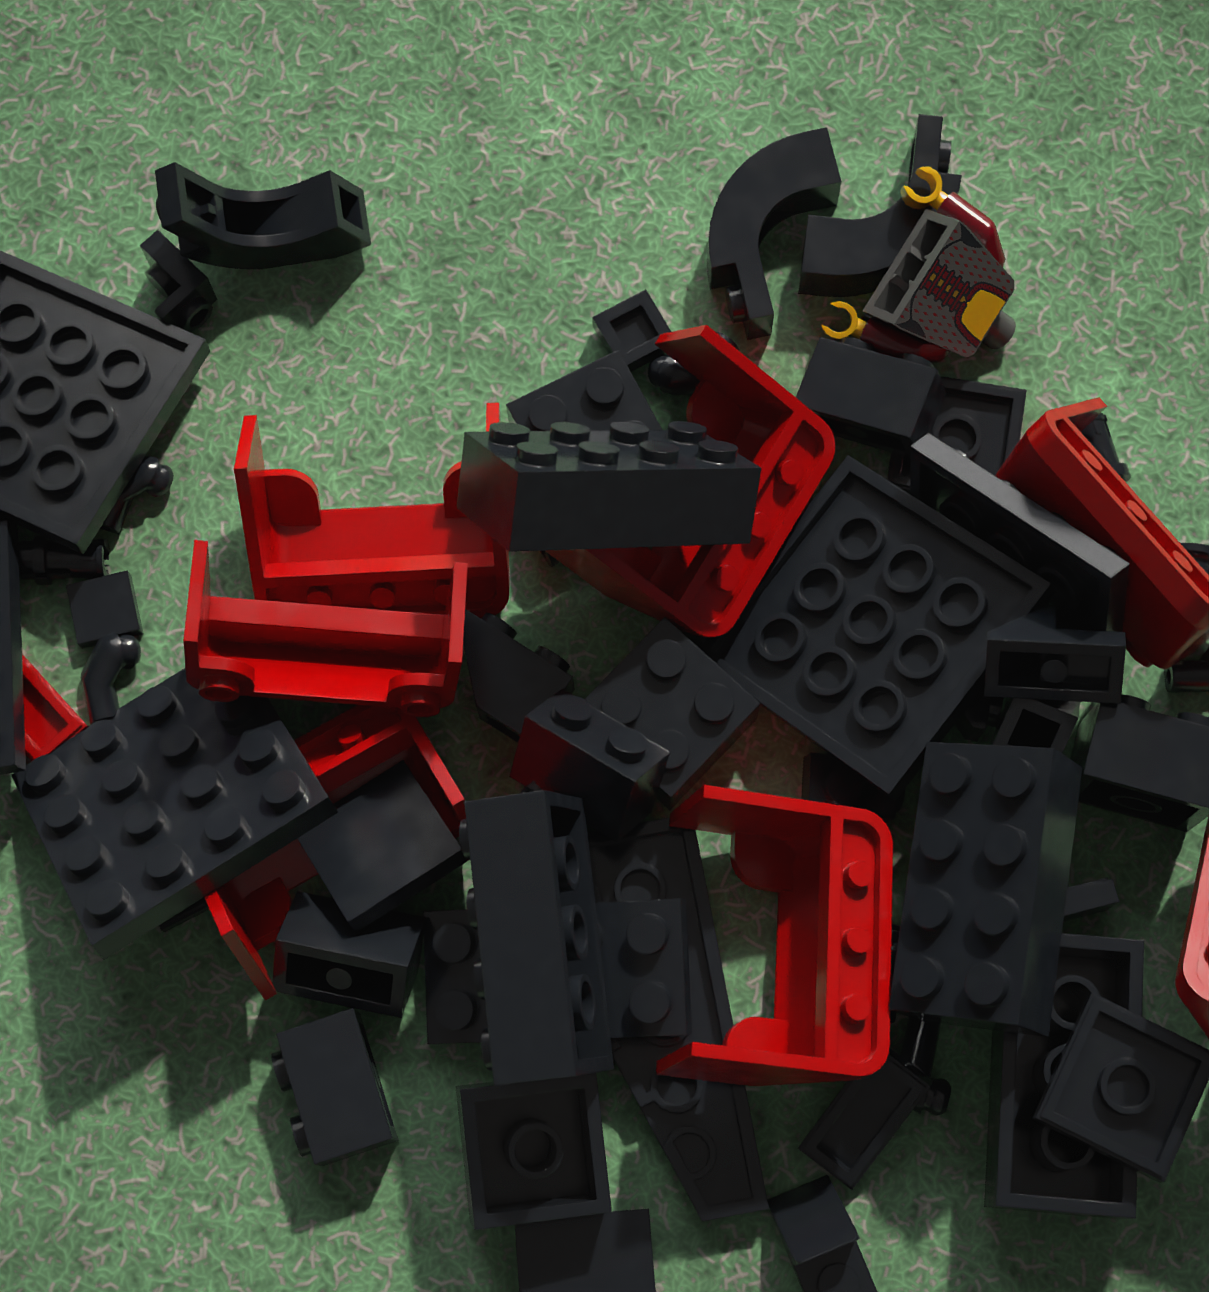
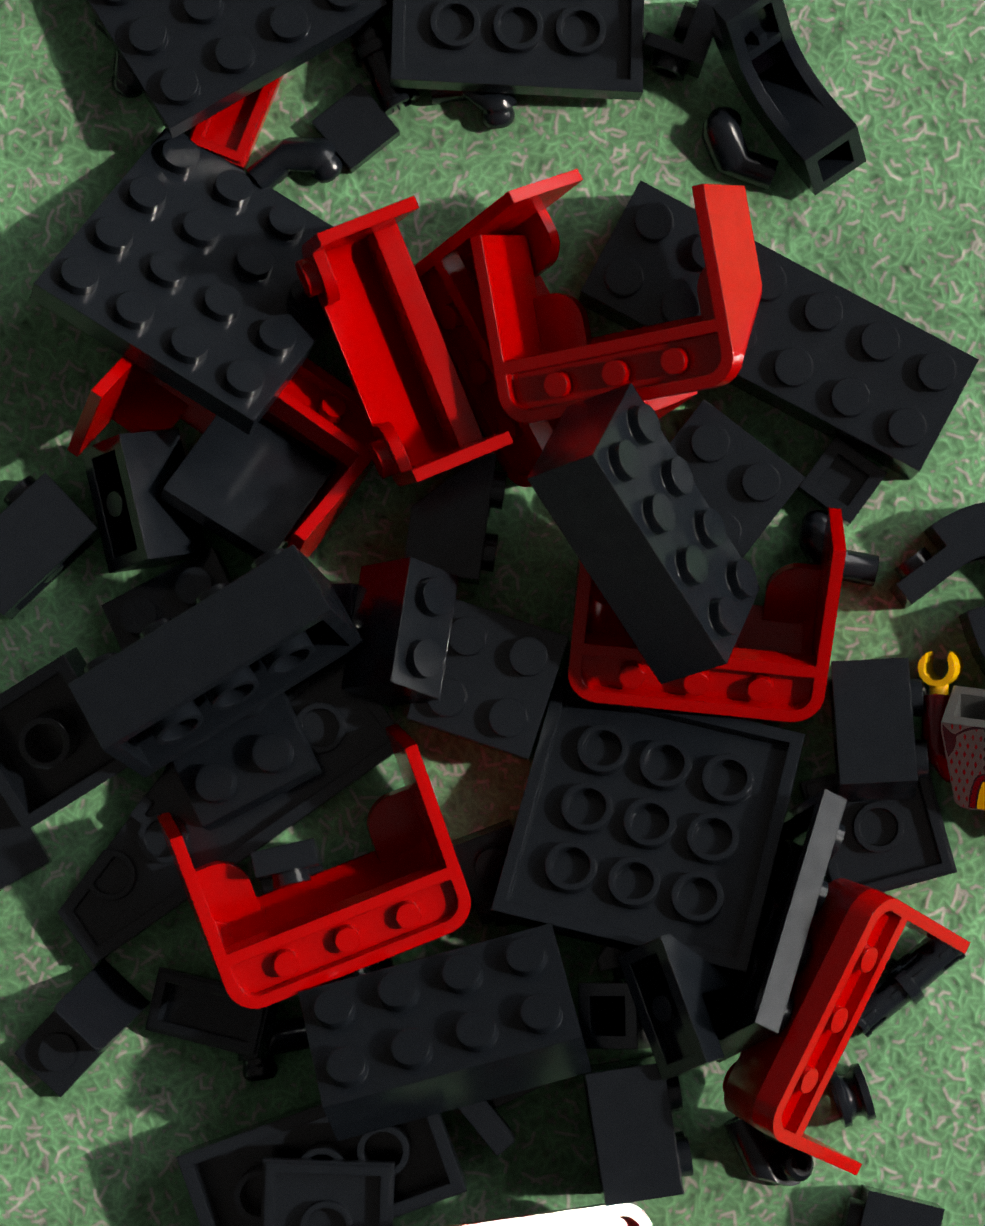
camera: 60 degrees right, 10 degrees up
(296, 298) = (729, 150): none -> black arm
(417, 520) = (545, 342): none -> red windscreen
(473, 324) = (811, 343): none -> black brick
(756, 976) = (287, 864): none -> black bracket

